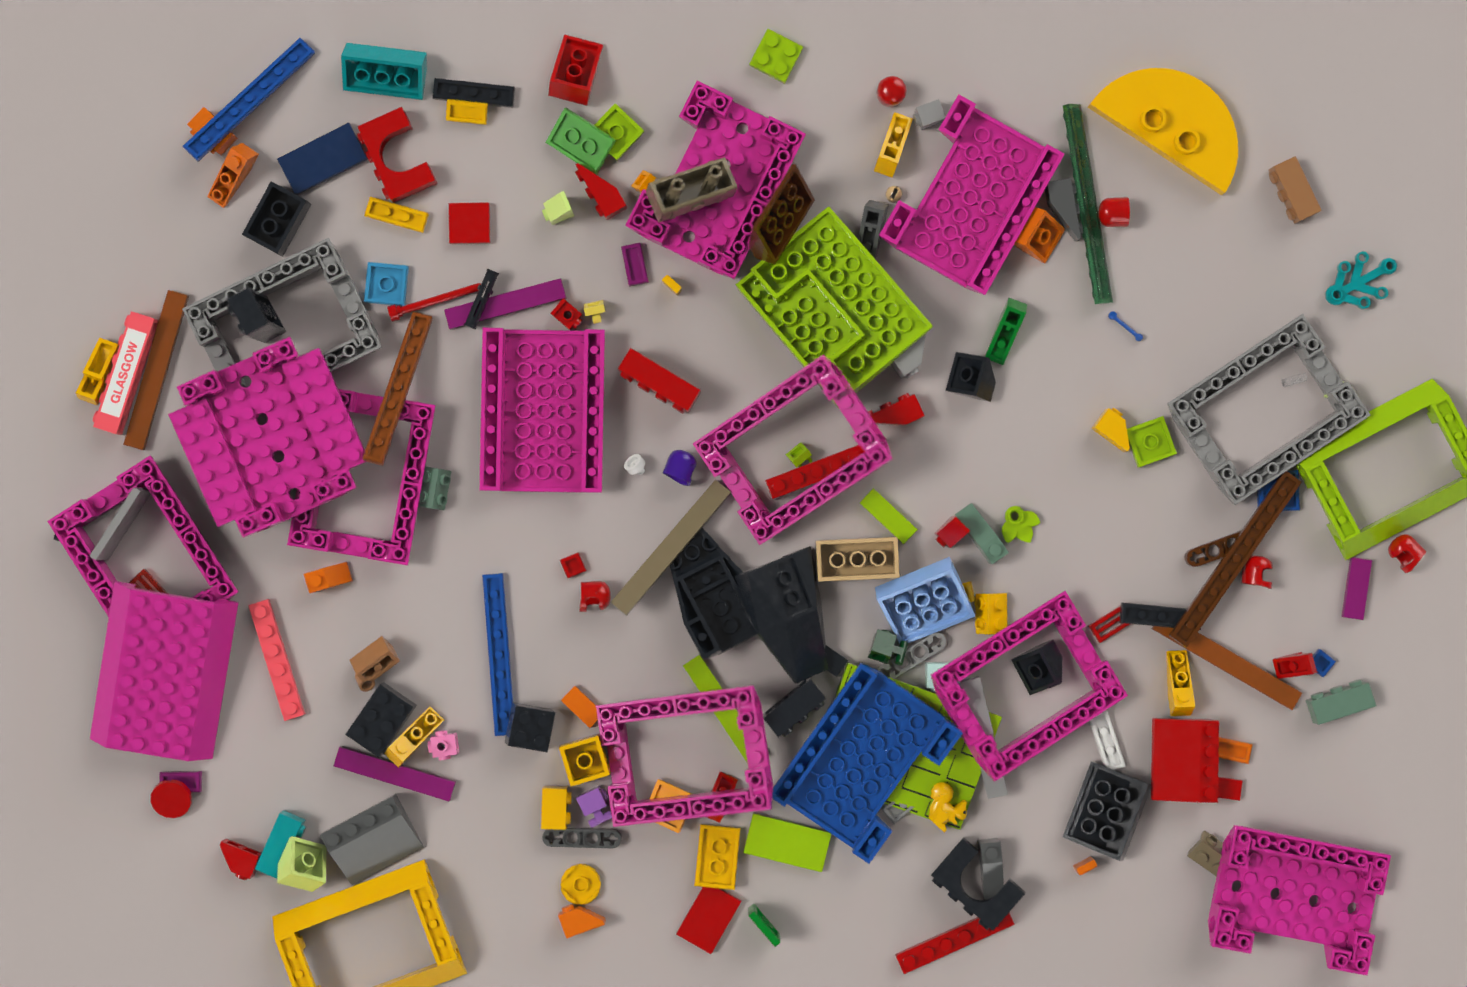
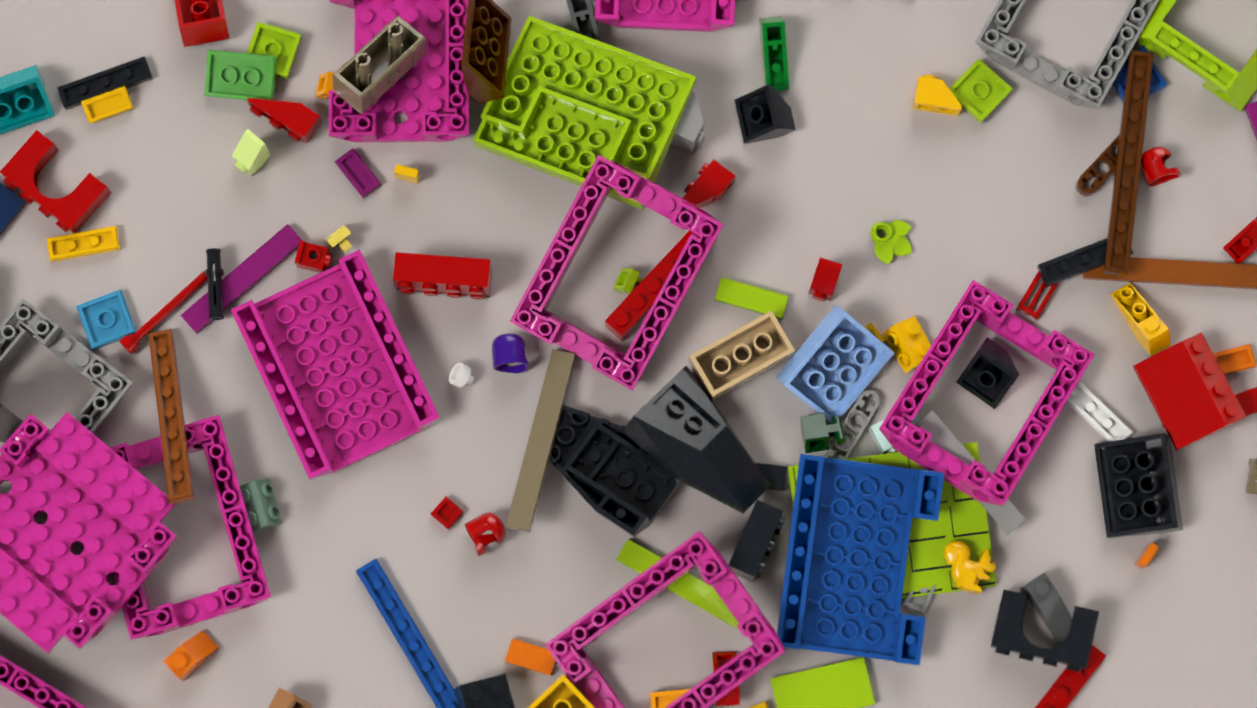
camera: 20 degrees left, 10 degrees down
(469, 223) = (164, 215): red tile -> none
(982, 534) = (860, 268): sand green slope -> none

